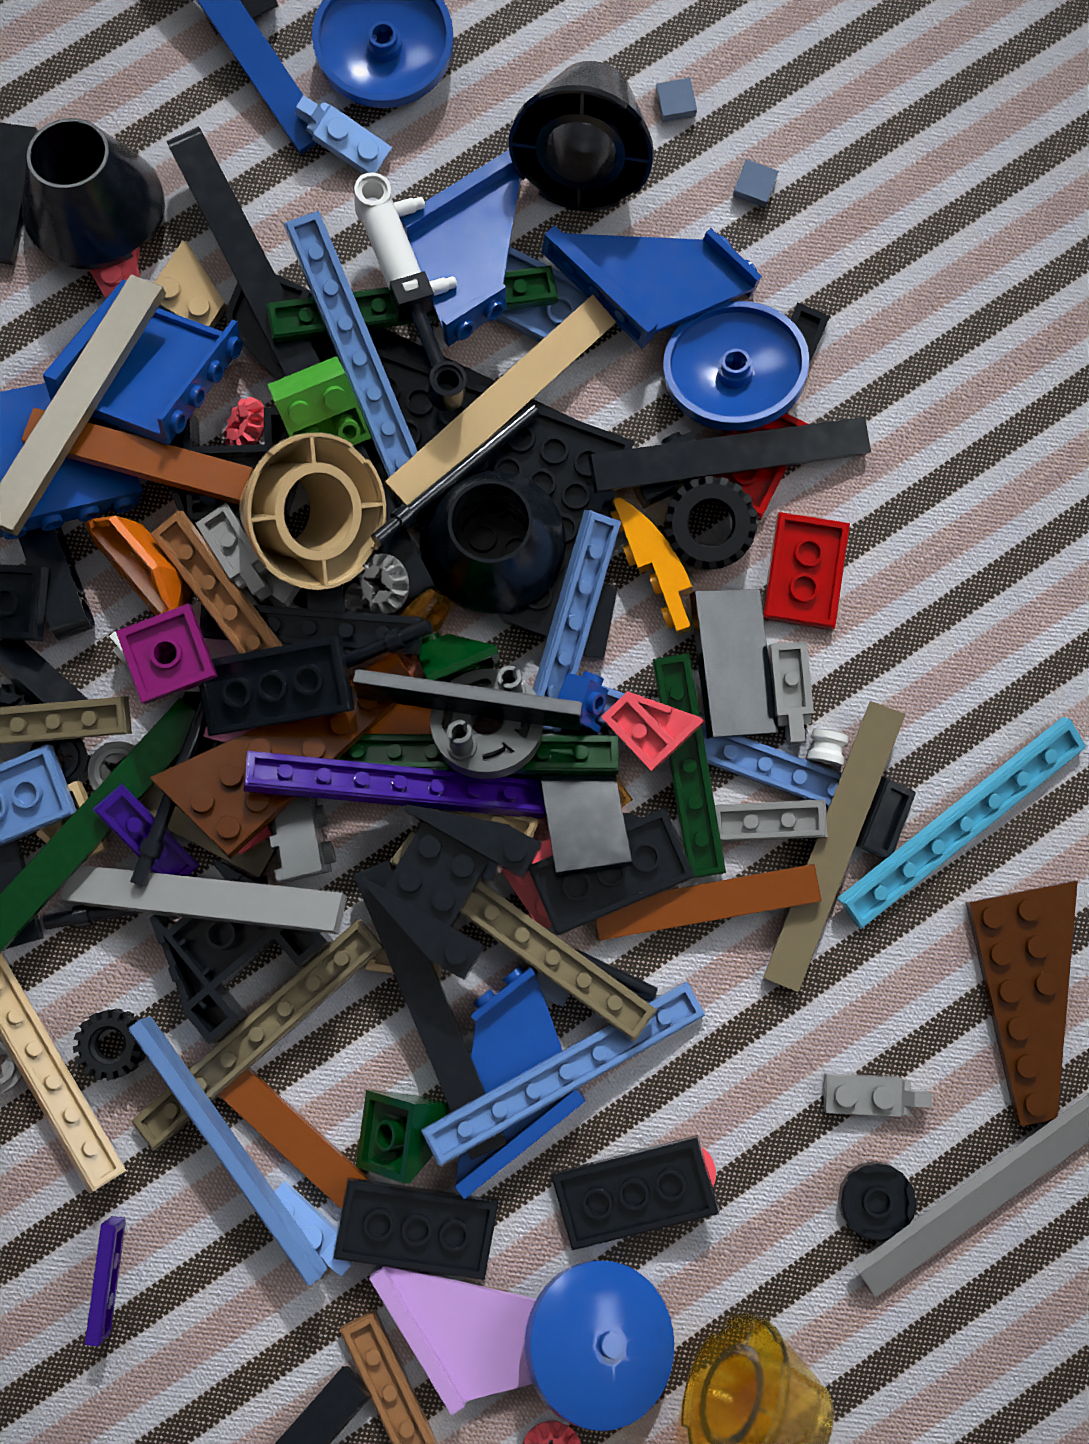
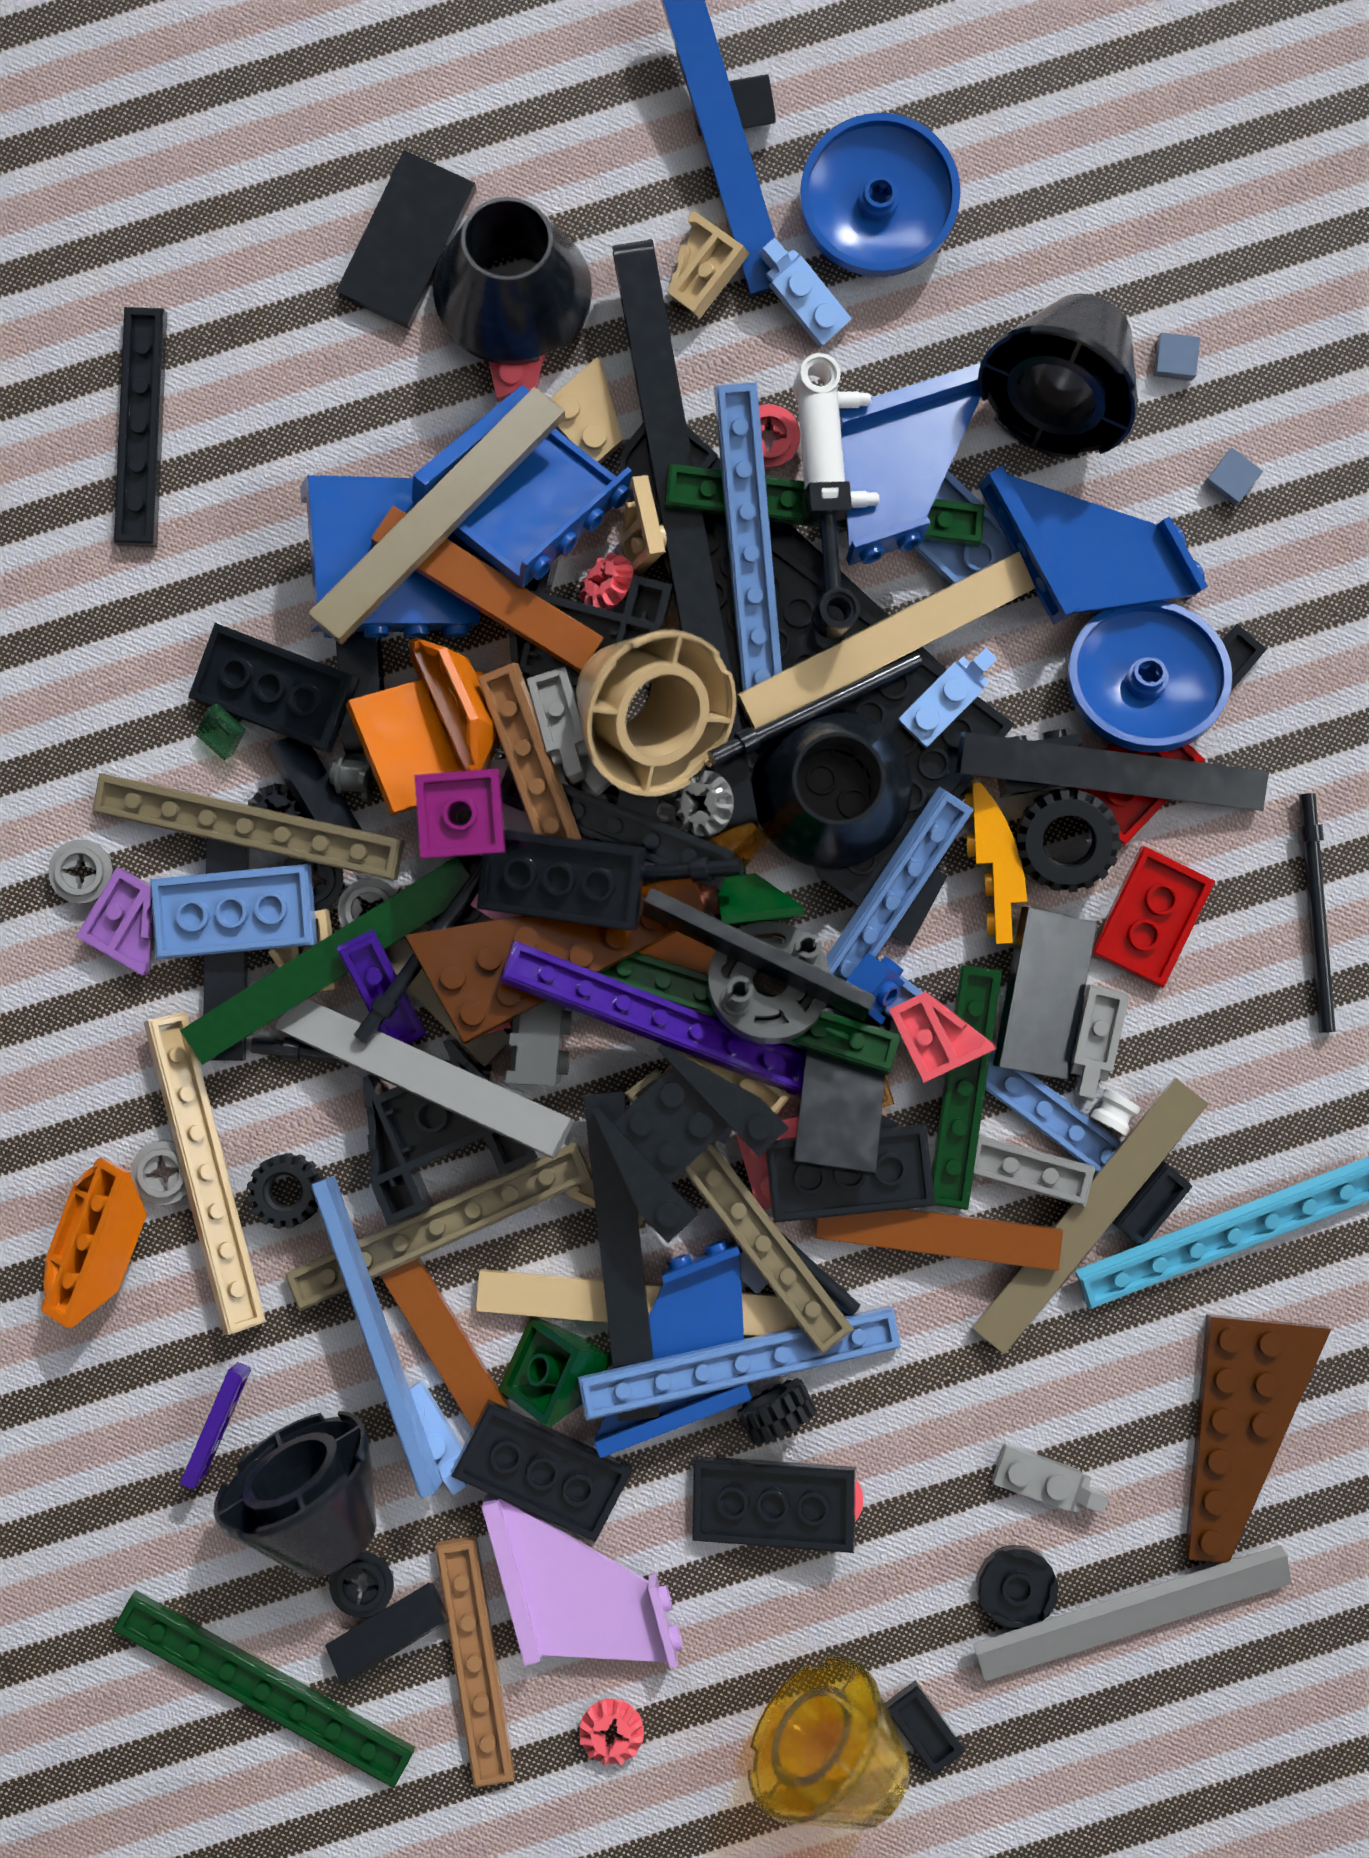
camera: 20 degrees right, 5 degrees up
(71, 656) = (353, 777): none -> dark grey brick
(95, 605) = (401, 740): none -> orange tile
(202, 1320) = (304, 1495): none -> black cone
(253, 138) = (704, 265): none -> tan wing
(258, 364) = (641, 535): none -> tan wing
(269, 1400) = (375, 1598): none -> black gear
(320, 402) = (694, 593): bright green slope -> none
(360, 252) = (782, 425): none -> coral gear
(410, 1060) = (585, 1300): none -> tan tile
(569, 435) = (946, 698): none -> light blue hinge
(599, 1345) = (693, 1643): blue dish -> none
(611, 1106) = (776, 1411): none -> black tyre
(835, 1358) = (924, 1727): none -> black tile
(918, 460) = (1311, 834): none -> black bar

